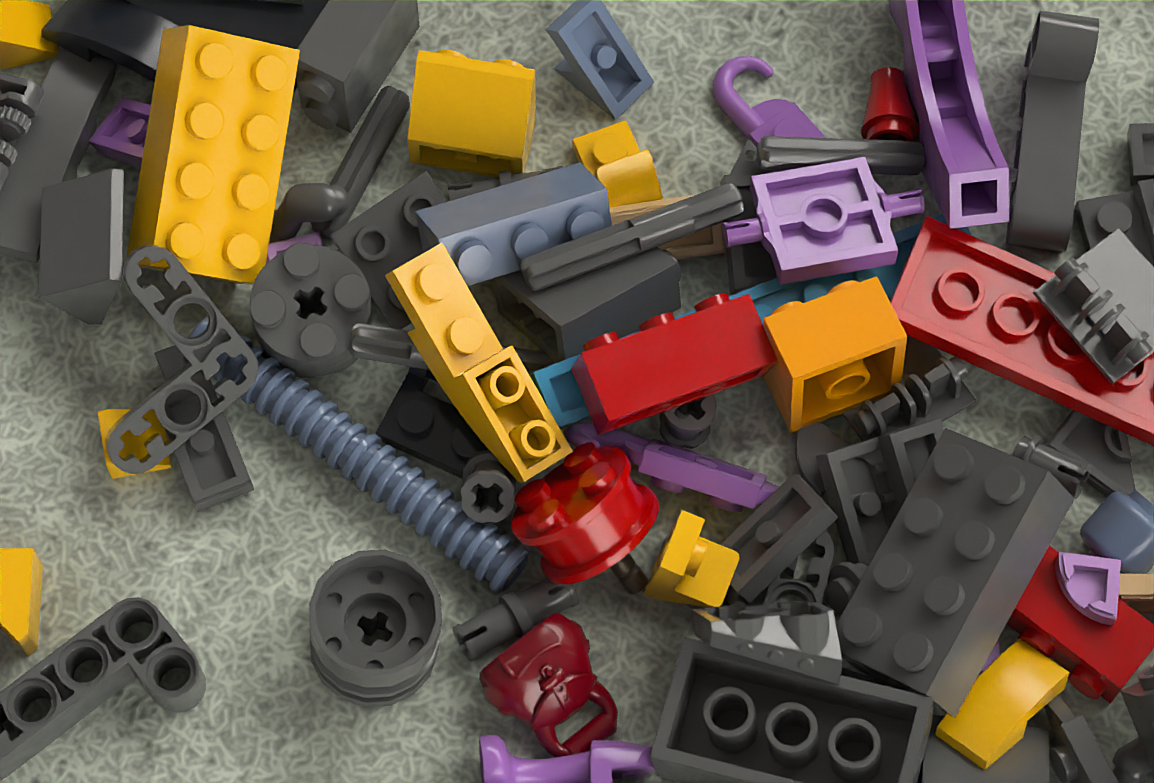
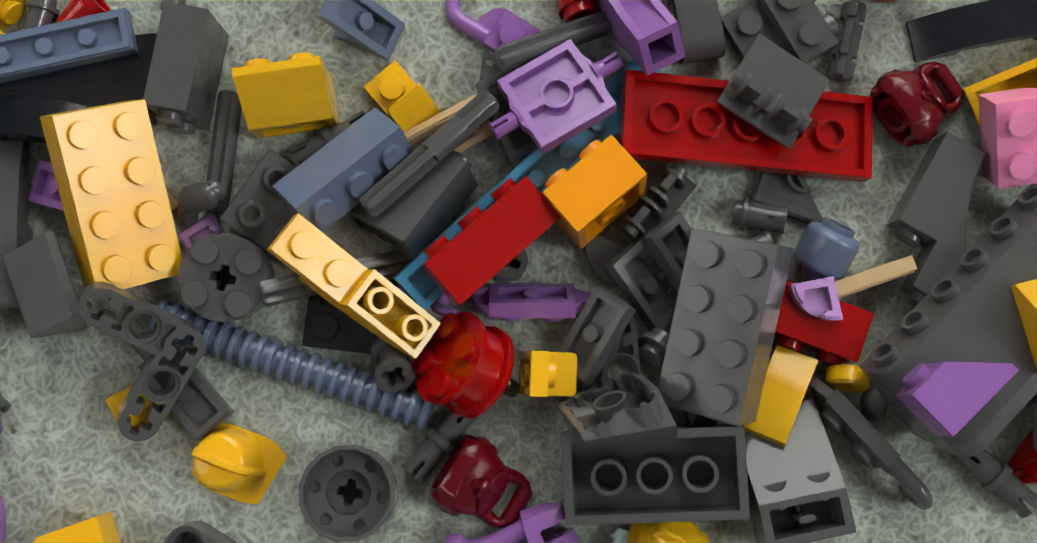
camera: 20 degrees left, 15 degrees up
(232, 557) = (237, 463): none -> yellow piece
(1105, 714) = (846, 378): none -> yellow tile

